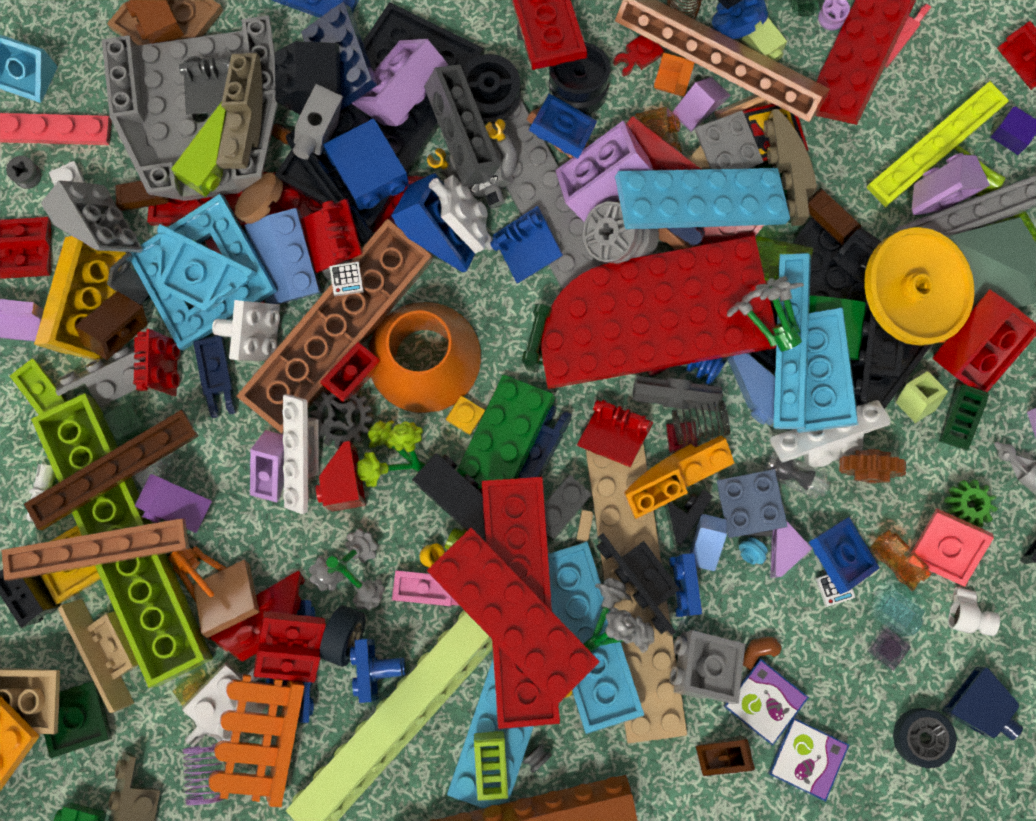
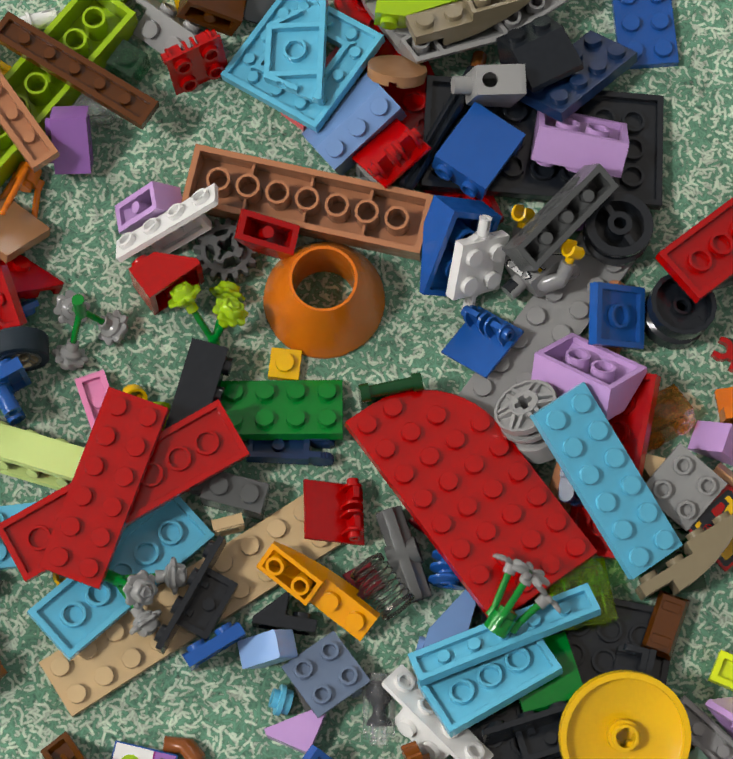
camera: 60 degrees right, 5 degrees down
(215, 373) = (213, 118): dark blue hinge -> none
(251, 330) = (266, 127): white plate -> none
(346, 279) = (354, 186): white tile -> none
(708, 667) = (145, 705): light grey plate -> none

